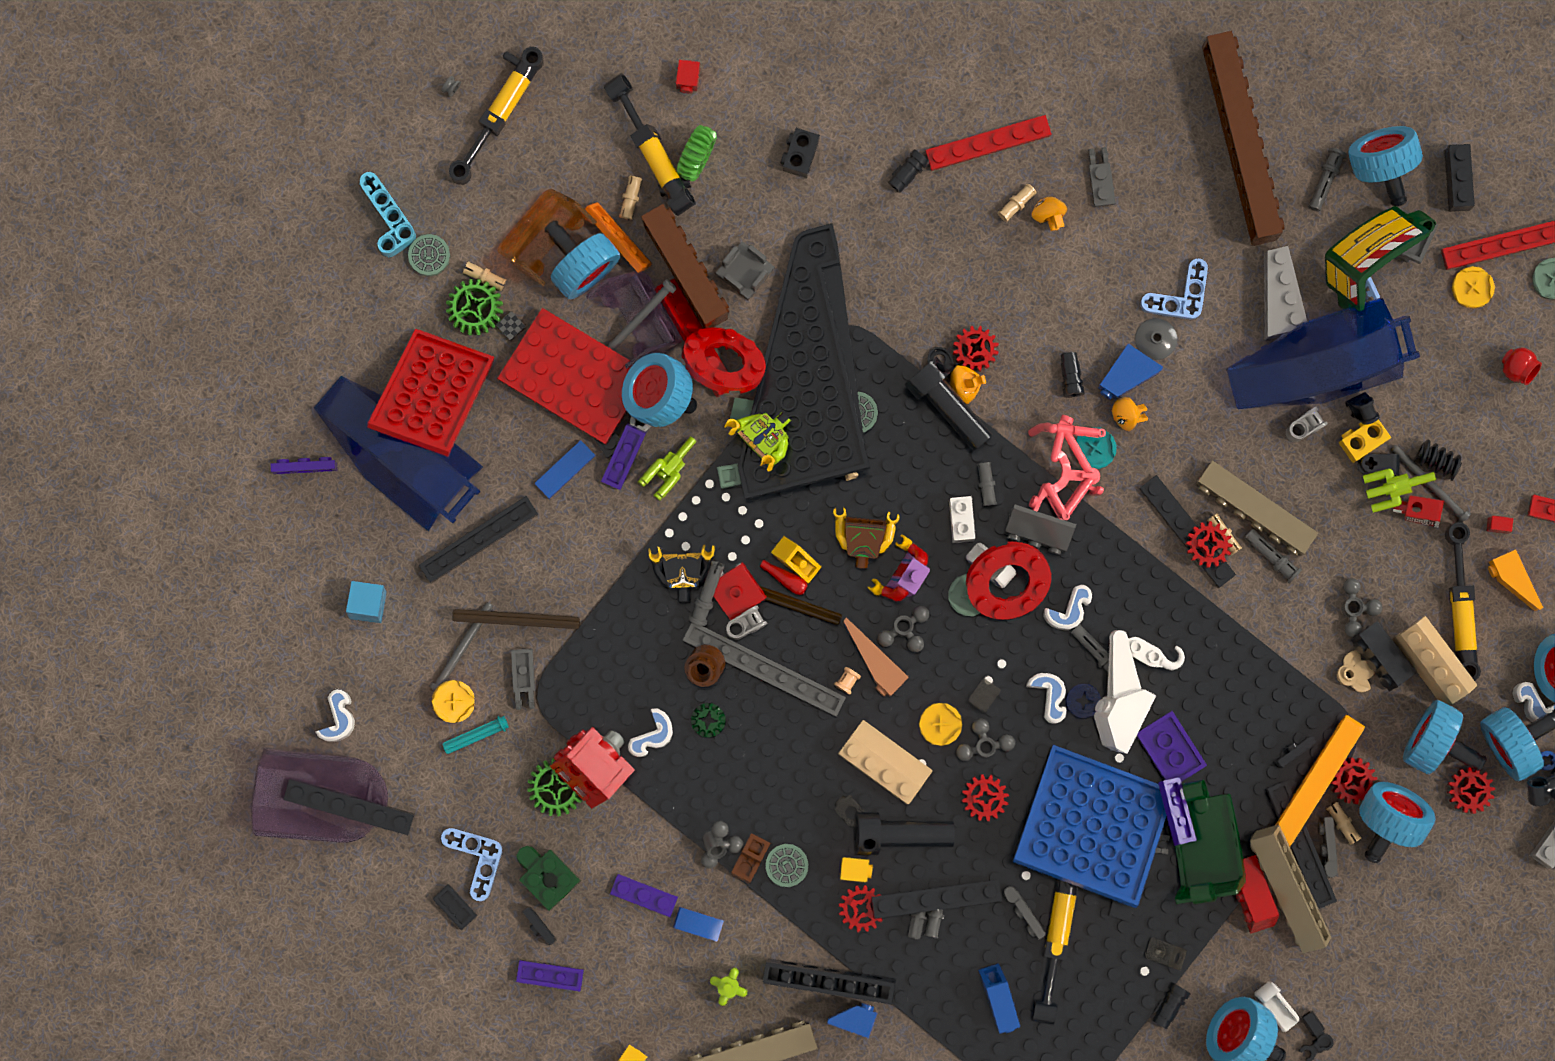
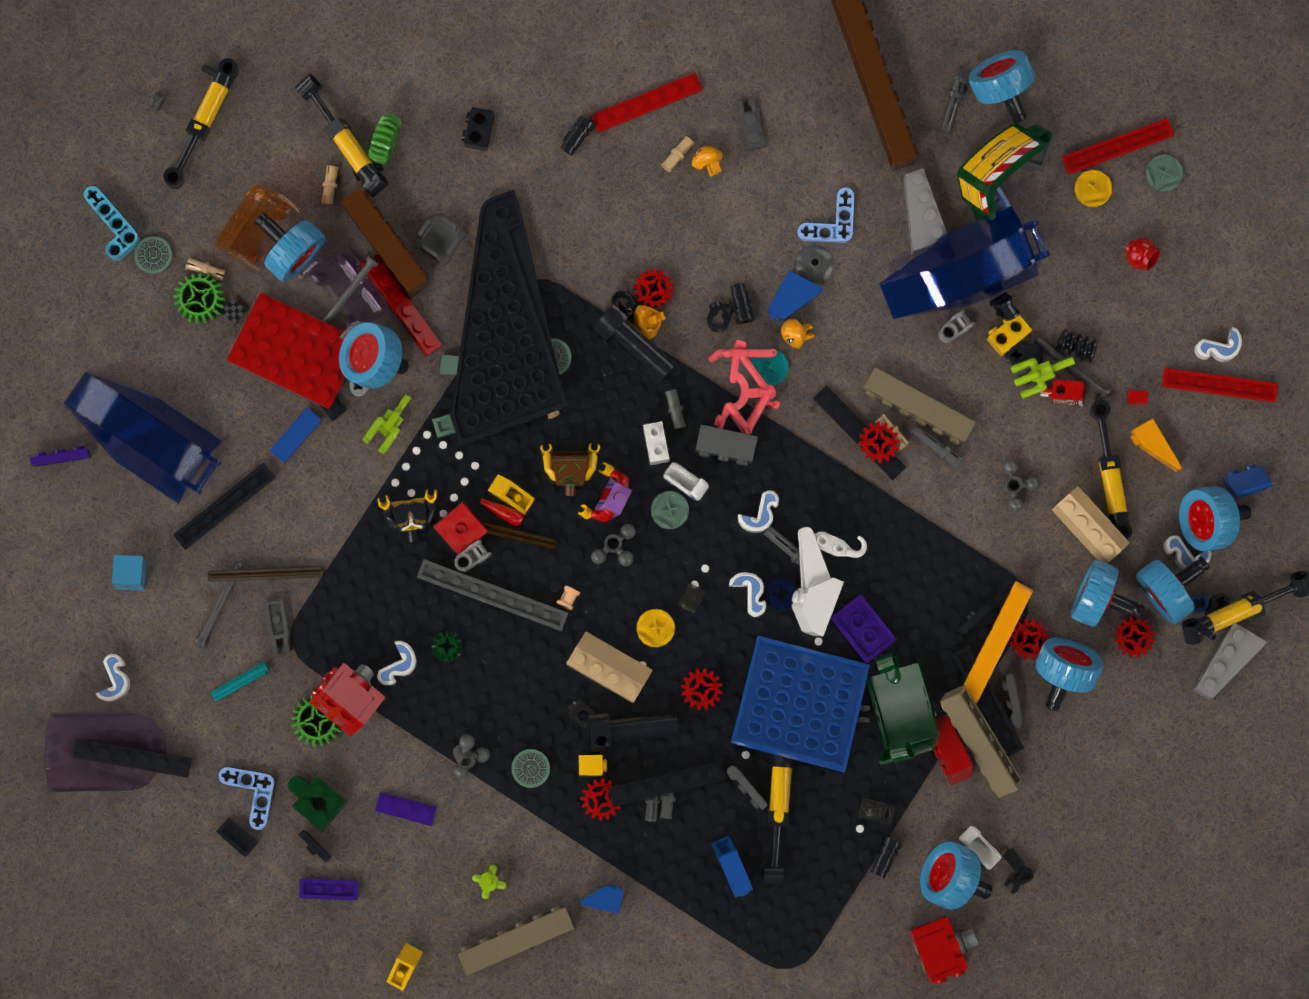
camera: 10 degrees left, 0 degrees up
(431, 392) = (167, 378): red plate -> none
(453, 701) = (216, 653): yellow tile -> none
(618, 238) = (322, 222): orange tile -> none
(623, 456) = (347, 418): dark purple plate -> none
(687, 76) = (370, 70): red brick -> none
(698, 924) = (457, 829): blue slope -> none
(703, 372) = (421, 340): red plate -> none
(704, 602) = (432, 541): dark grey pin -> none
(711, 658) = (442, 589): reddish brown piece -> none
(750, 858) = (497, 766): reddish brown slope -> none
(763, 436) = (470, 386): torso -> none
(829, 981) = (579, 867): black brick -> none
(881, 668) = (598, 585): nougat slope -> none
(981, 727) = (691, 627): dark grey piece -> none
(997, 557) = (688, 474): red plate -> none
(1054, 382) = (727, 312): none -> black piece
(1177, 811) = (873, 683): dark purple plate -> none
(1344, 823) = (1024, 678): tan pin -> none
(1358, 670) = (1025, 541): tan plate -> none
(1383, 656) = (1044, 526): black brick -> none
(1459, 177) = (1071, 91): black brick -> none

